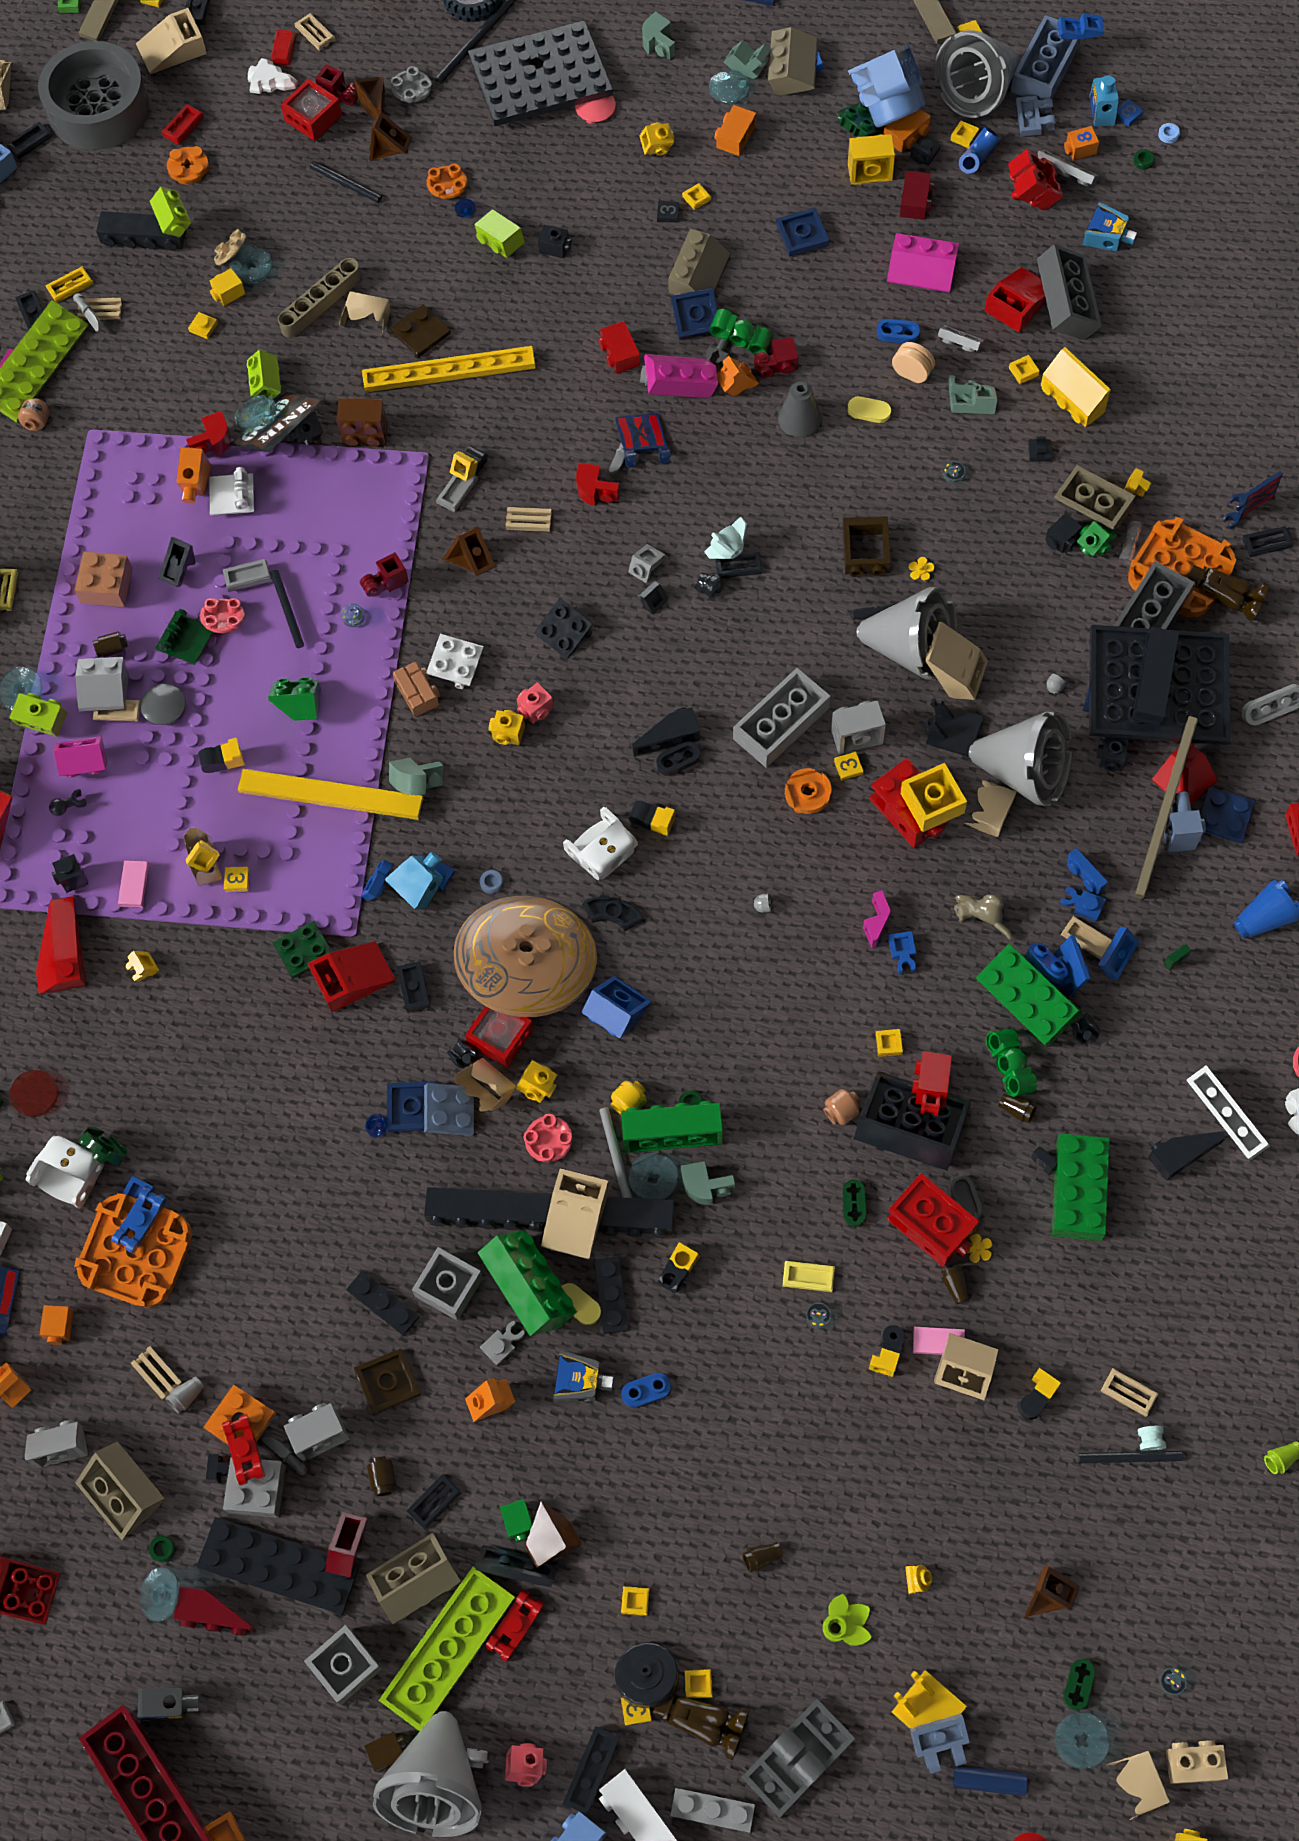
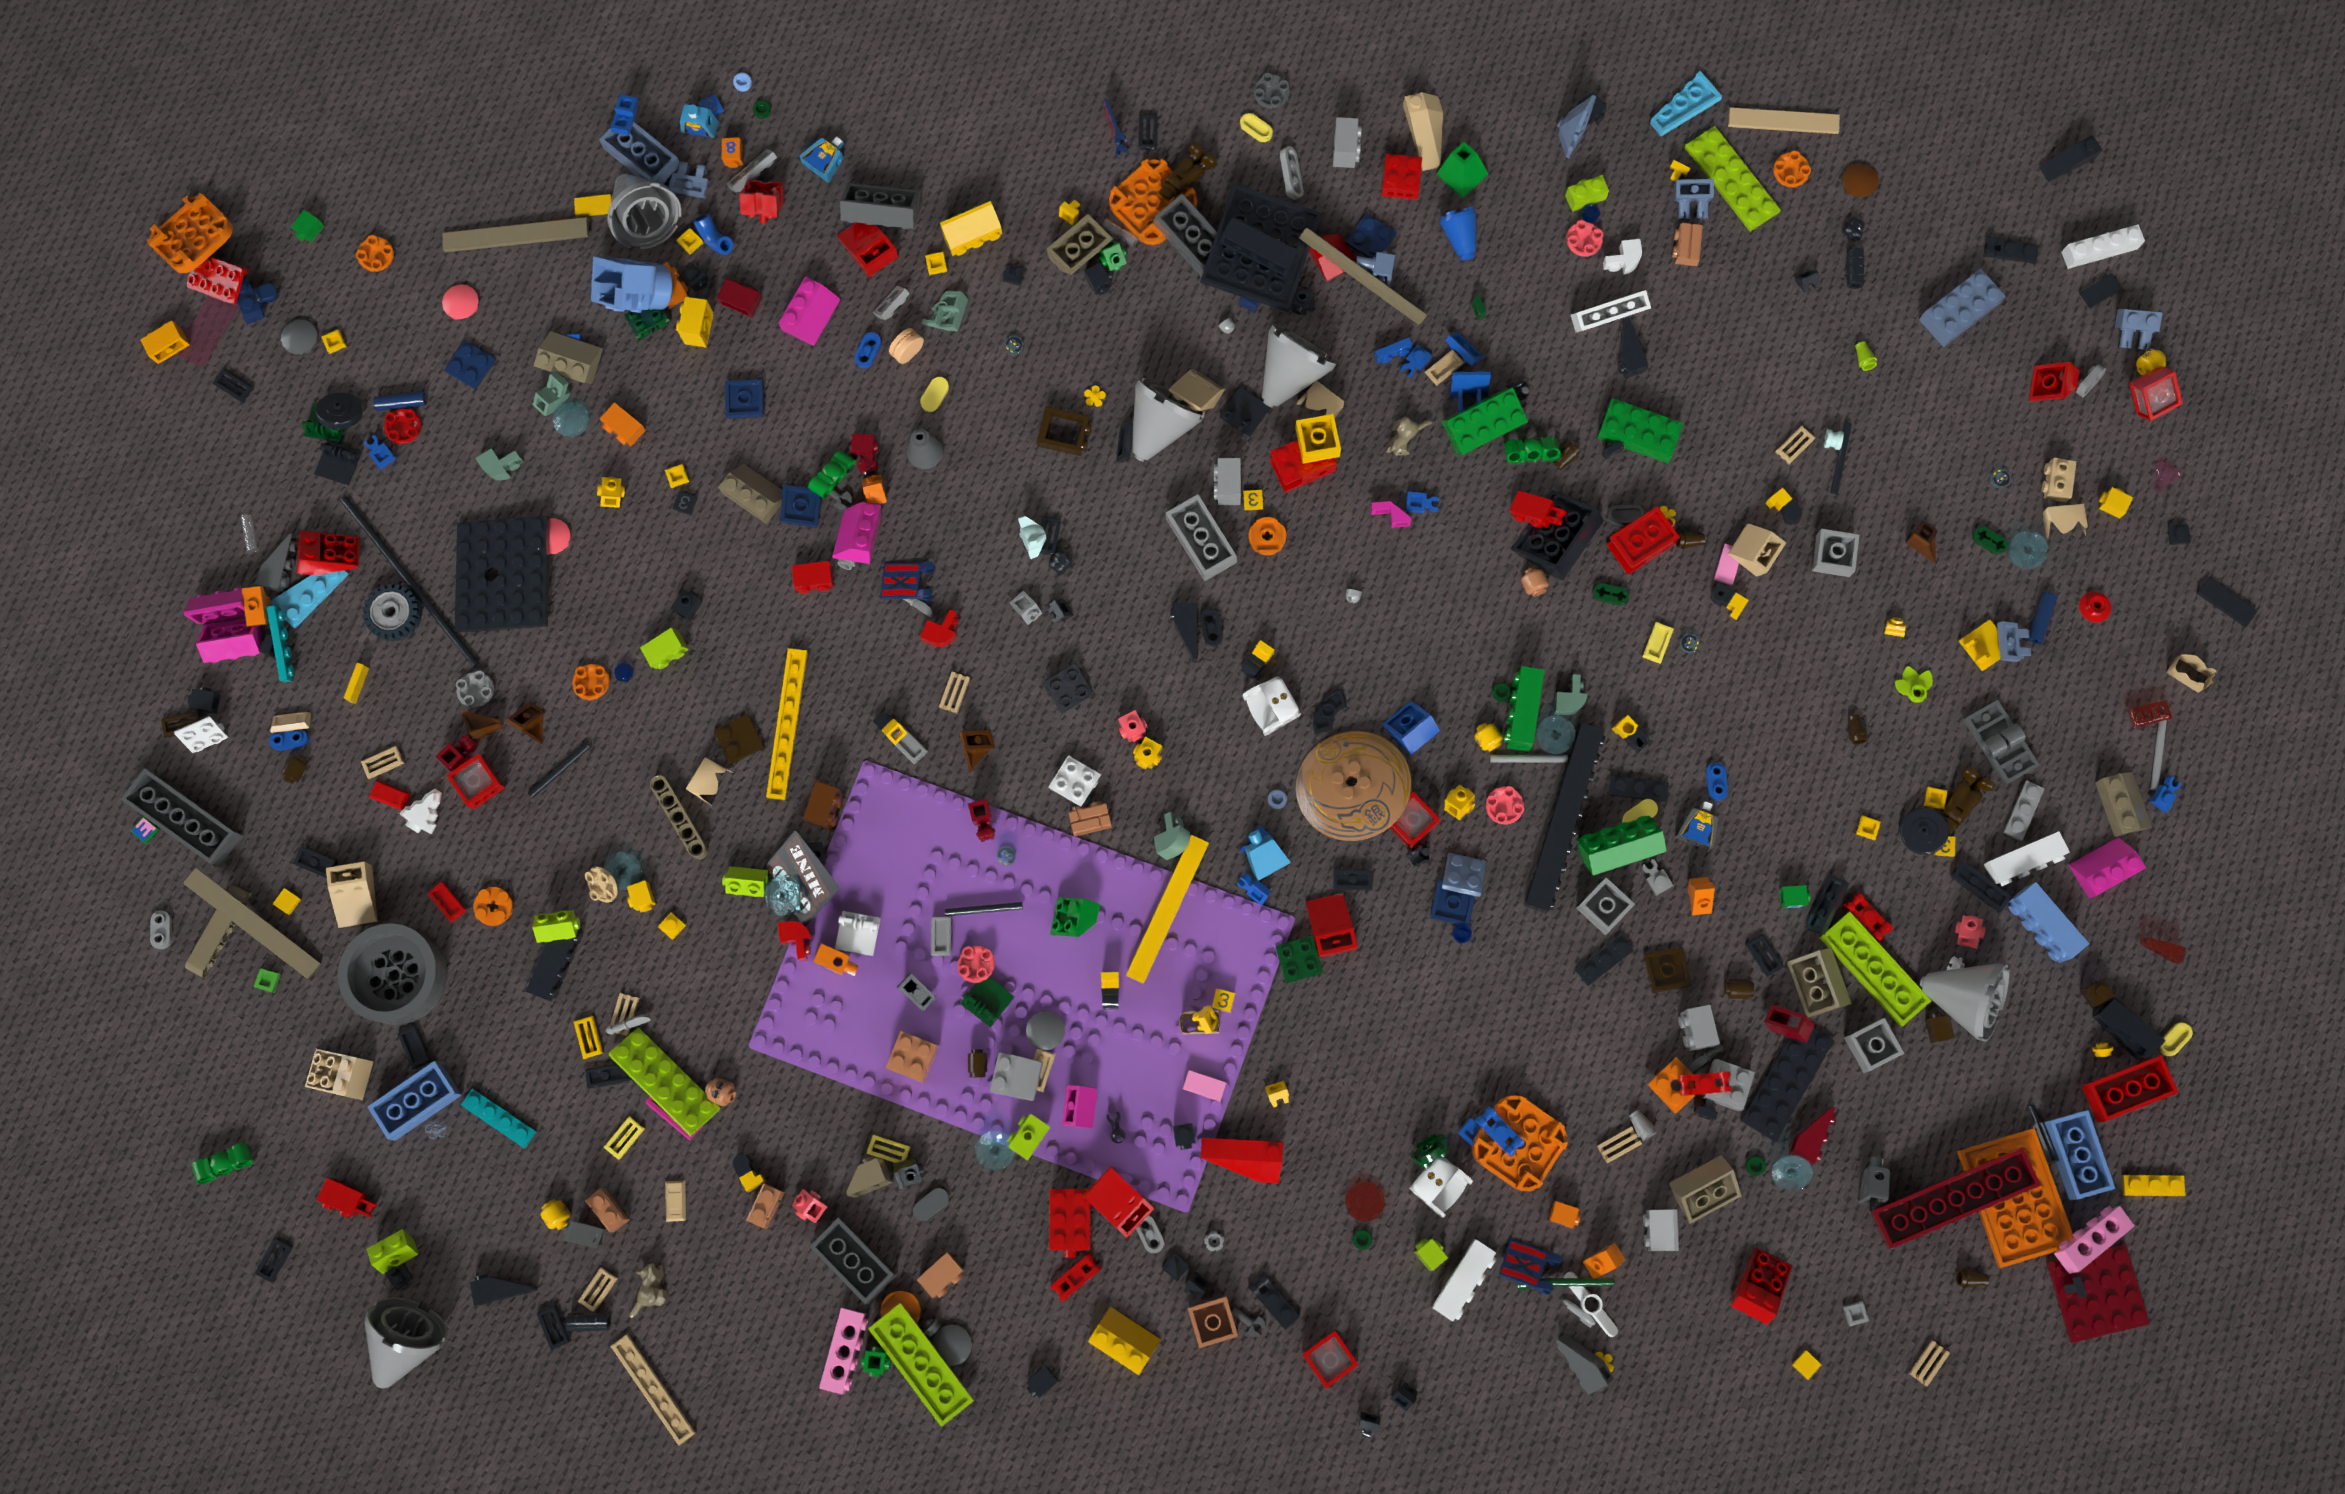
camera: 75 degrees left, 10 degrees up
(488, 1074) = (1449, 838): tan piece -> none
(550, 1536) = (1814, 874): slope -> none
(575, 1213) = (1580, 795): tan slope -> none
(889, 1042) = (1492, 534): yellow plate -> none
(993, 1472) = (1835, 553): none -> light grey brick
(1046, 963) = (1464, 400): blue plate -> none

